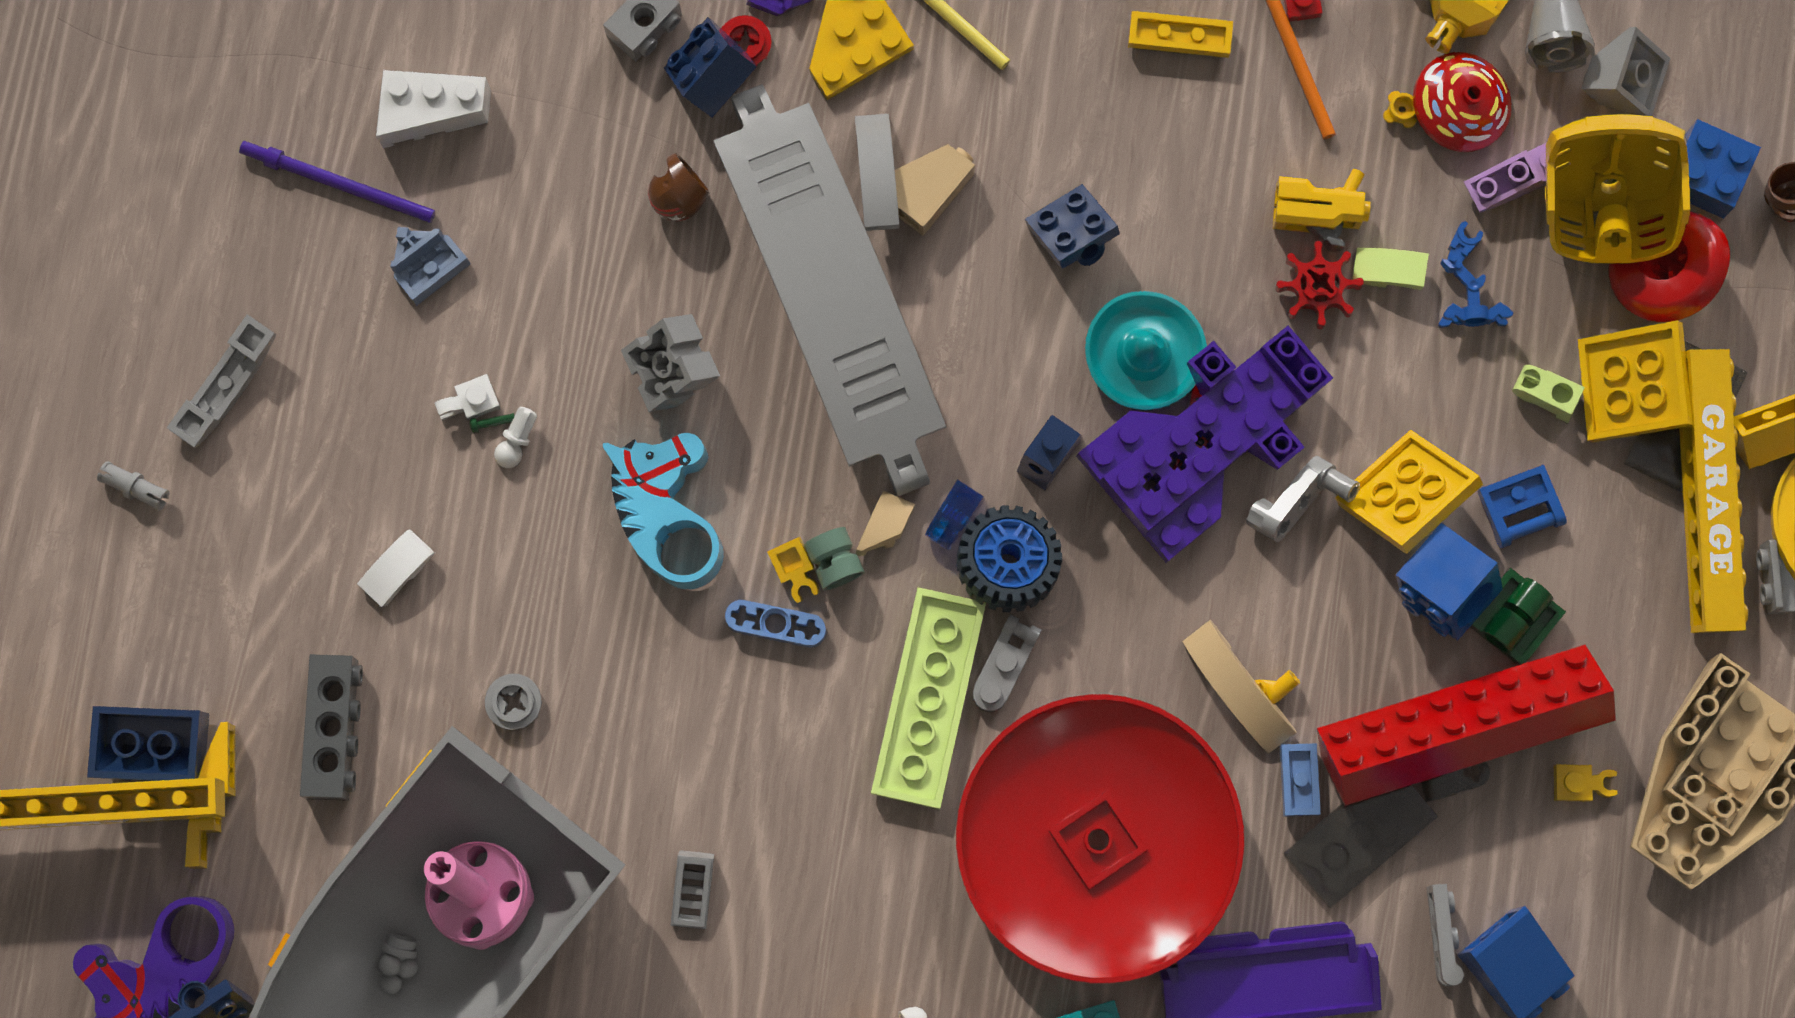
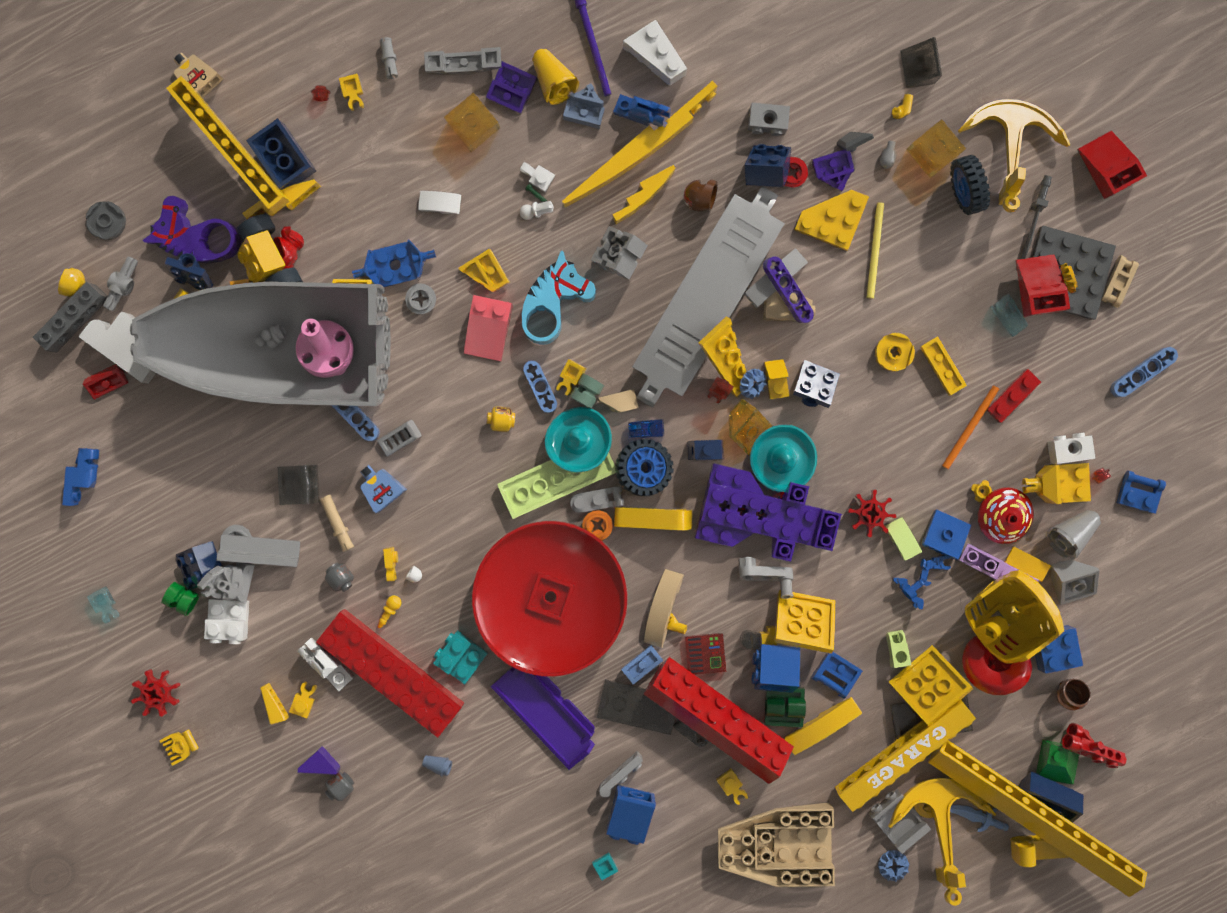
camera: 55 degrees right, 10 degrees up
(104, 622) = (320, 93): none -> clear red plate
(134, 571) = (351, 89): none -> yellow plate
(264, 882) = (261, 254): none -> yellow brick
(286, 844) = (289, 245): none -> red hair
(314, 343) = (511, 87): none -> dark purple slope
(319, 434) = (472, 122): none -> clear yellow brick
(322, 674) = (322, 239): dark grey brick -> none
(348, 271) = (554, 78): none -> yellow cone
(432, 672) = (378, 264): none -> blue plate
(494, 183) = (642, 111): none -> blue plate
(544, 222) = (642, 146): none -> yellow slope
(547, 575) = (486, 271): none -> yellow wing
(598, 939) = (347, 415): none -> medium blue beam
(612, 258) = (649, 189): none -> yellow slope
(631, 634) = (487, 328): none -> coral slope
(745, 972) = (380, 488): none -> medium blue torso
(779, 715) = (501, 419): none -> yellow head
(896, 621) = (578, 439): none -> teal hat
(908, 168) = (791, 288): none -> dark purple beam
(935, 321) = (723, 353): none -> yellow wing
(977, 365) = (720, 389): none -> clear red plate
(997, 321) = (747, 382): none -> medium blue gear
(1021, 277) = (776, 379): none -> yellow slope
(1029, 681) = (597, 516): none -> orange gear
(1058, 366) = (746, 425): none -> clear yellow slope
(1092, 601) = (653, 518): none -> yellow beam
(1107, 105) = (900, 361): none -> yellow plate
(1320, 210) = (907, 489): yellow piece -> none
(1352, 674) = (705, 653): none -> clear red tile
(1382, 590) = (753, 640): none -> clear smoke leg
(1429, 203) = (946, 534): none -> blue plate
(1537, 127) = (1027, 563): none -> yellow slope
(1585, 579) = (823, 725): none -> yellow slope

